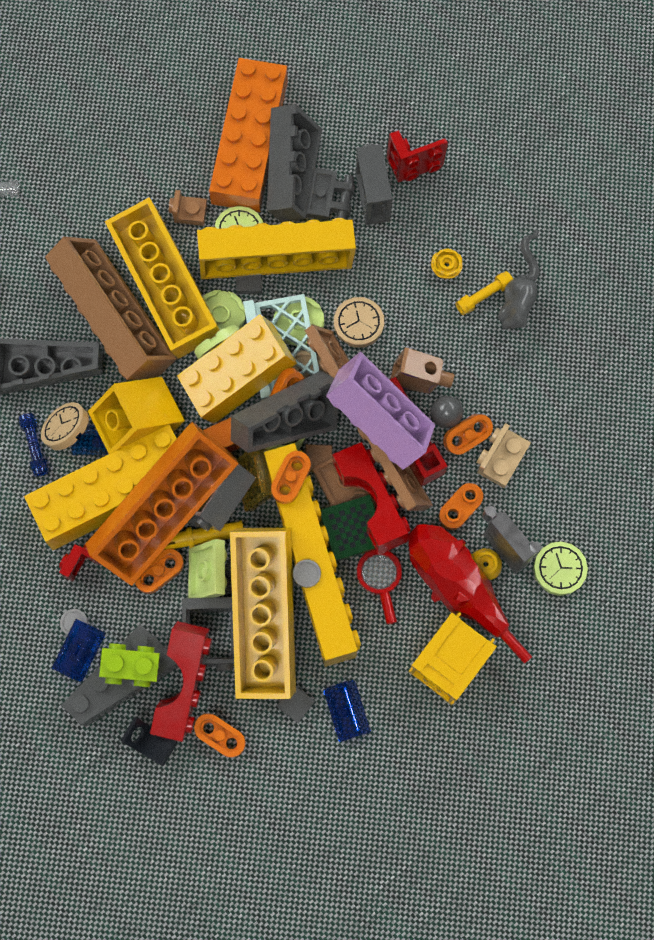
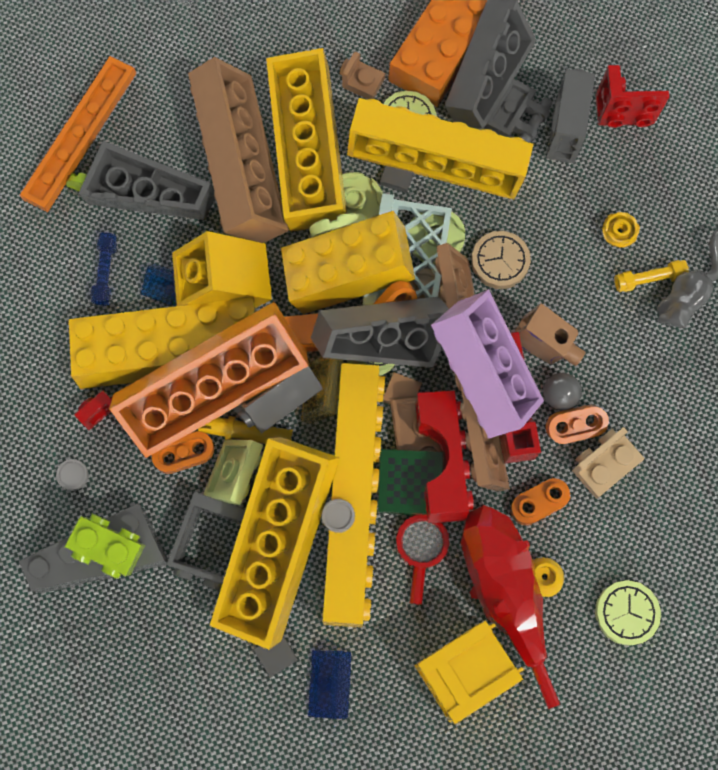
camera: 20 degrees right, 0 degrees up
(64, 425) = (141, 260): tan tile -> none
(78, 650) = (64, 507): clear blue slope -> none
(149, 745) = (101, 638): black bracket -> none
(187, 648) = (175, 551): red arch -> none
(220, 735) = (180, 659): orange plate -> none
(290, 478) = (357, 401): orange plate -> none
(508, 540) = (580, 560): flat silver piece -> none

